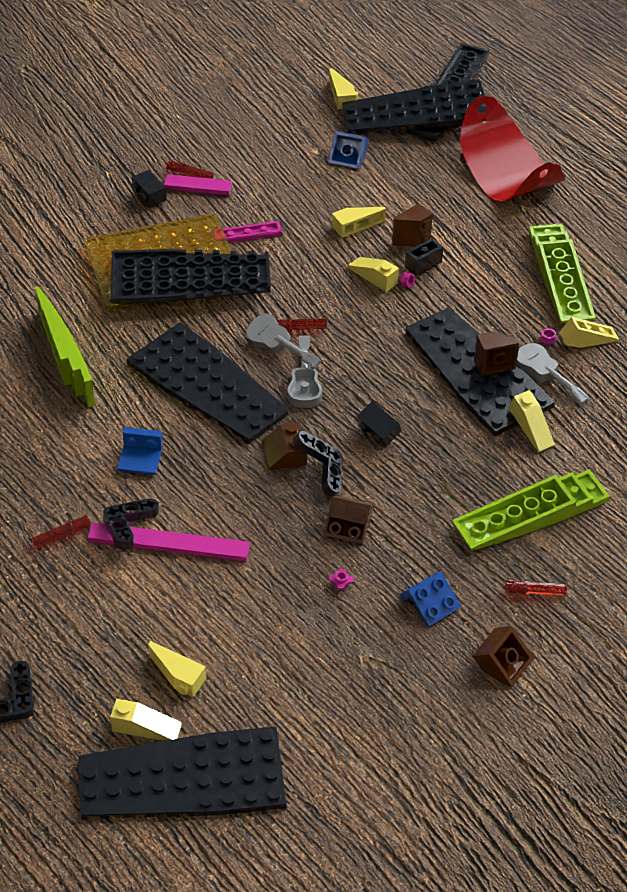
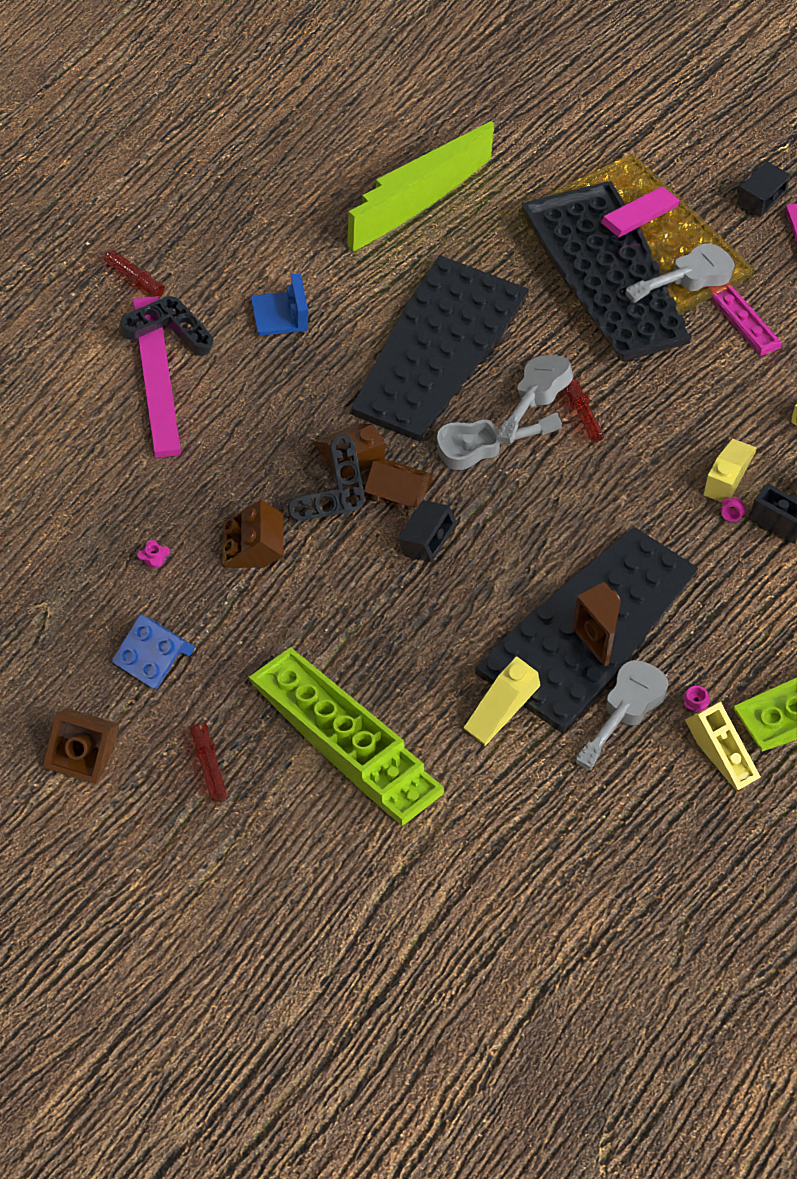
camera: 70 degrees right, 5 degrees up
(149, 244) = (640, 211): none -> dark pink tile
(210, 233) = (701, 268): none -> light grey piece
(331, 426) = (397, 483): none -> reddish brown slope

